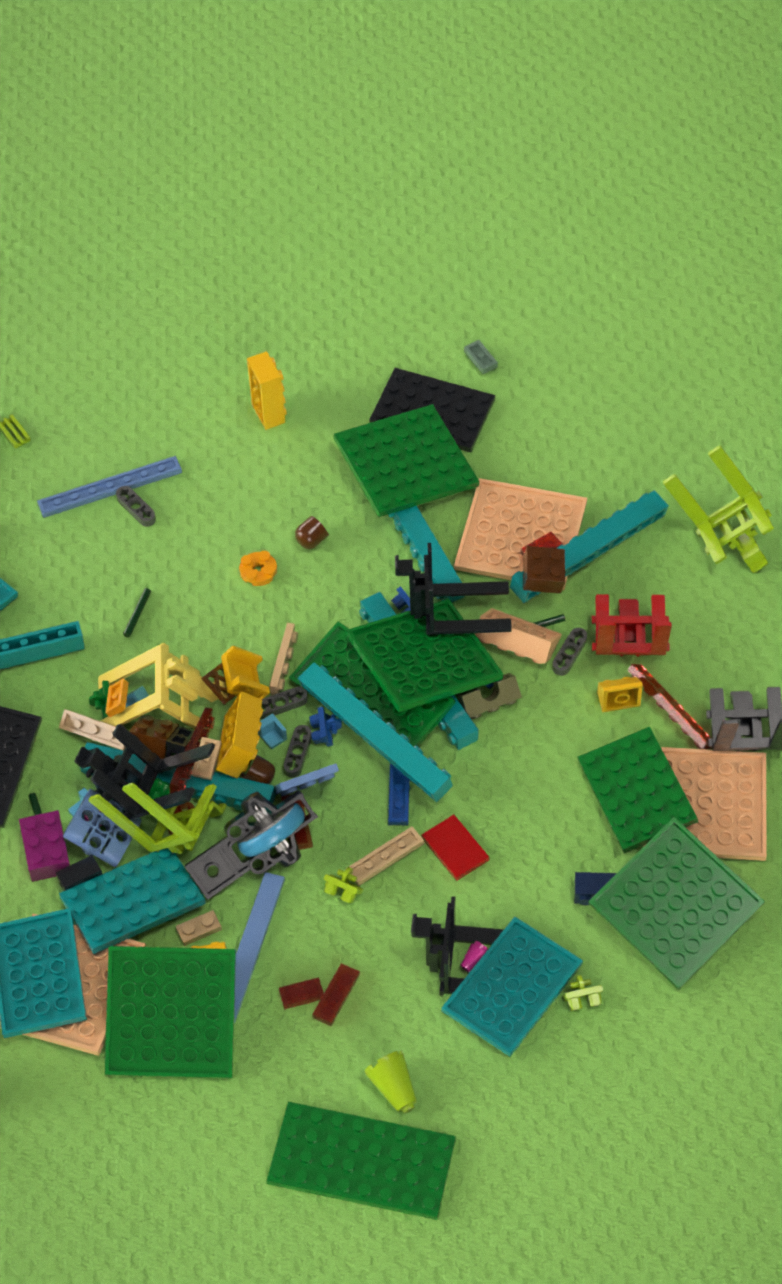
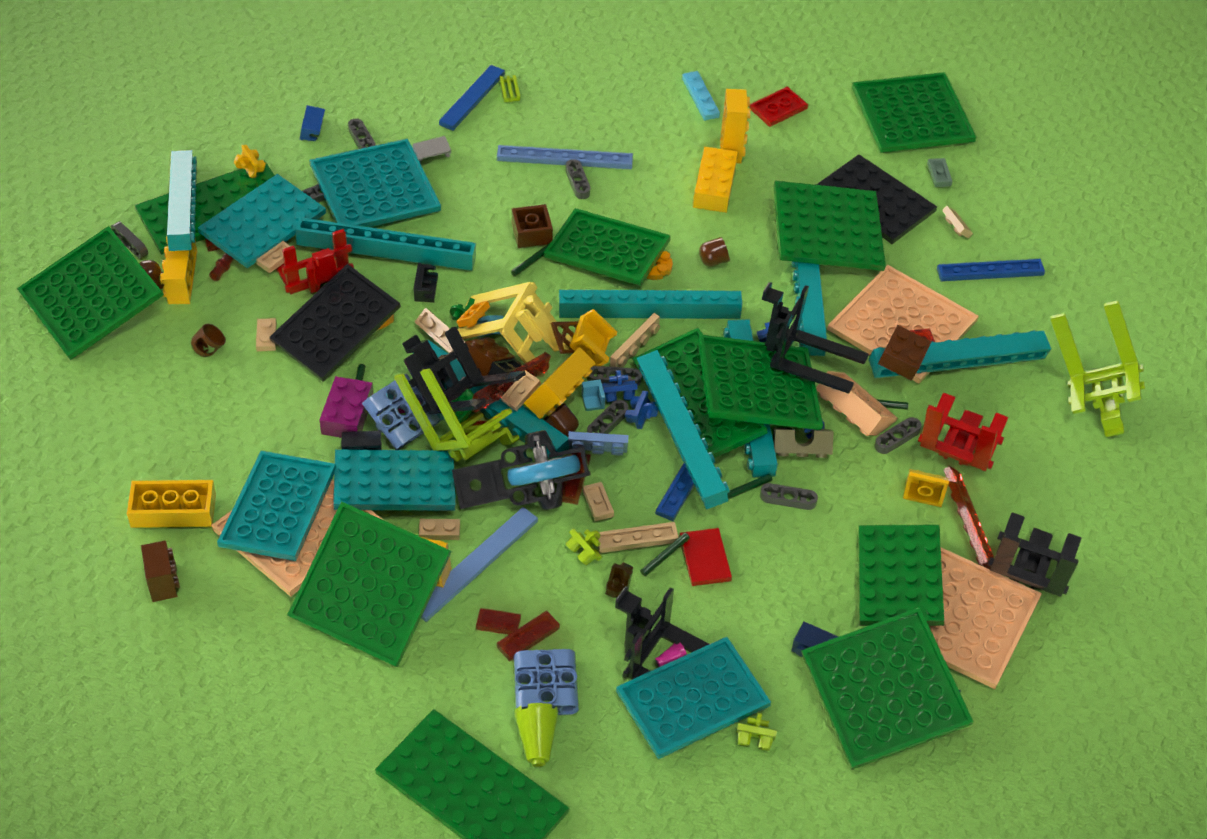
camera: 20 degrees right, 5 degrees down
(47, 682) = (425, 283): none -> black hinge
(120, 577) = (532, 226): none -> reddish brown brick
(204, 569) = (607, 246): none -> green plate
(208, 362) = (700, 95): none -> medium azure plate
(271, 452) = (715, 179): none -> yellow brick
(276, 614) = (643, 303): none -> teal brick
(292, 343) = (778, 106): none -> red tile
(292, 710) = (627, 387): none -> blue hips
(331, 836) = (598, 501): none -> tan plate
(382, 1012) = (560, 668): none -> medium blue connector
(393, 906) = (619, 578): none -> dark brown hips
(419, 861) = (665, 554): none -> dark green bar
(424, 299) = (913, 112): none -> green plate
(462, 758) = (749, 486): none -> dark green bar
(513, 746) = (774, 499): none -> dark grey beam
(527, 408) = (953, 218): none -> tan plate
(574, 443) = (990, 270): none -> blue tile

